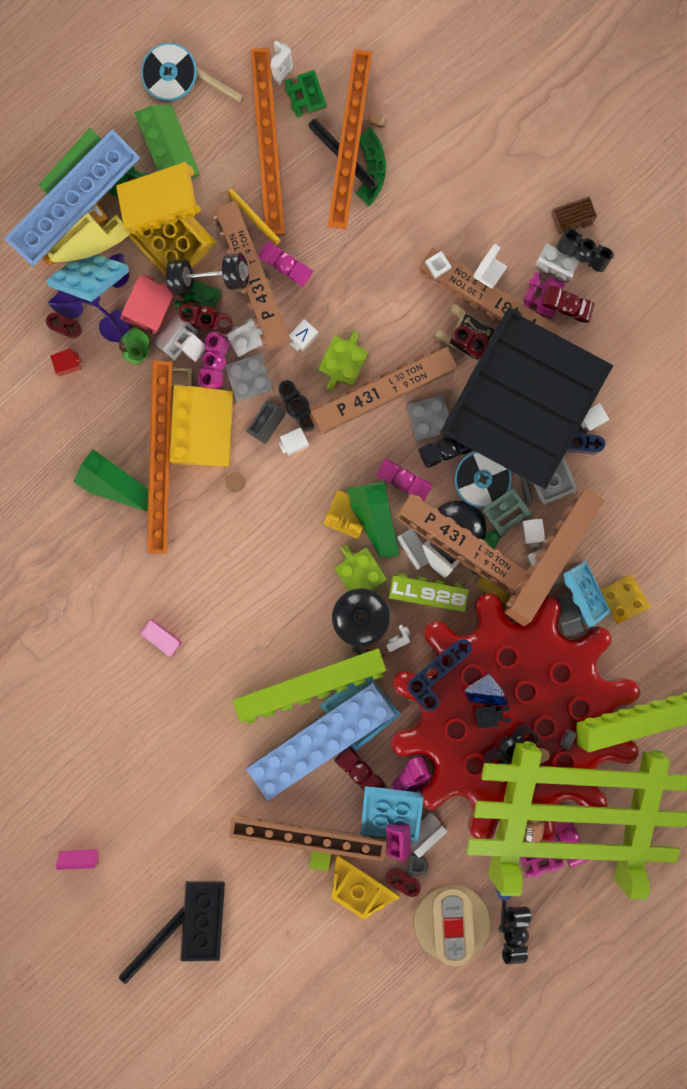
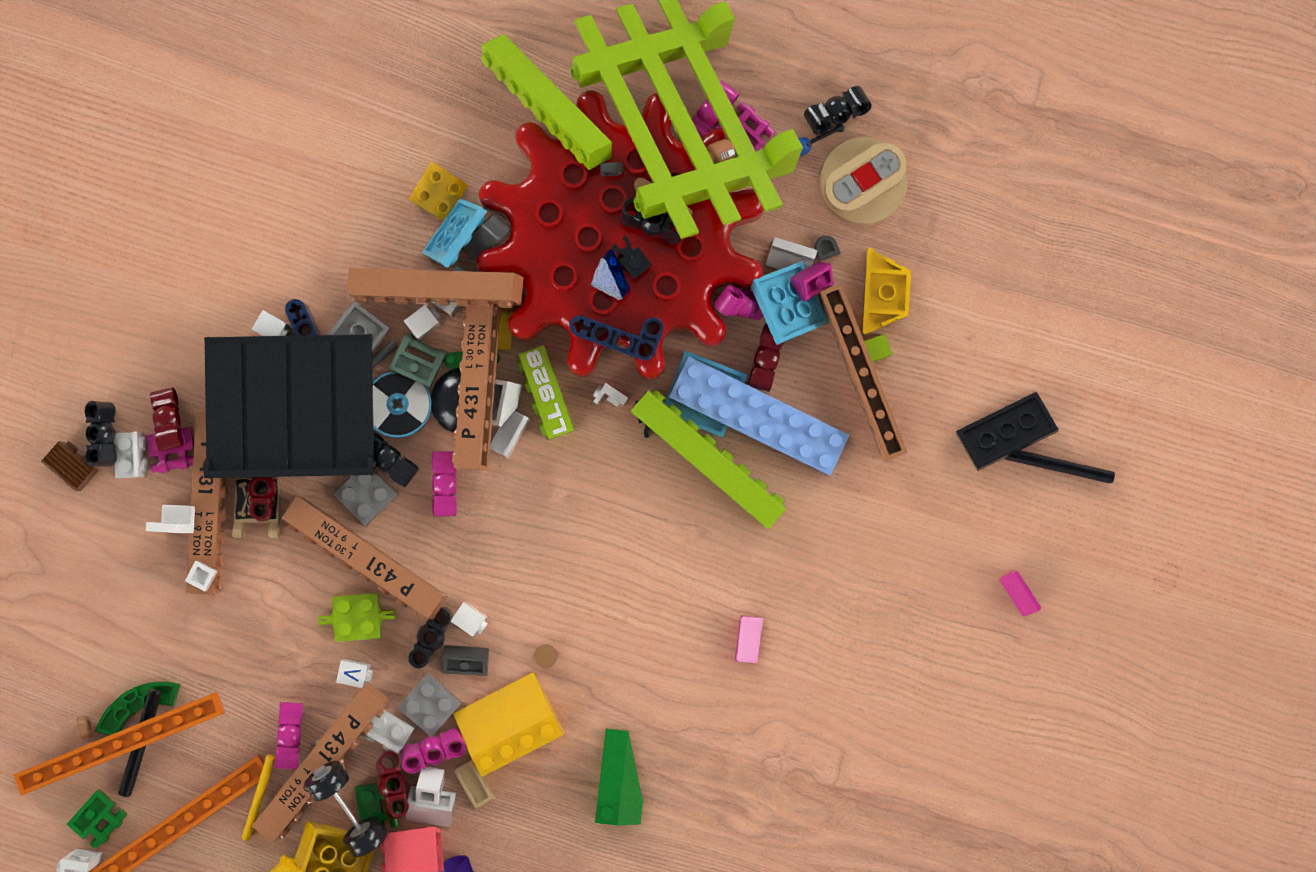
camera: 110 degrees left, 0 degrees up
(135, 346) = (463, 842): bright green hair -> none
(159, 457) = (563, 749): orange plate -> none
(342, 517) = (512, 521): yellow hinge -> none
(360, 570) = (565, 473): lime plate -> none
(364, 631) = (607, 430): black dish -> none
(374, 513) = (496, 494): green wedge -> none
(400, 886) = (857, 252): dark red beam -> none

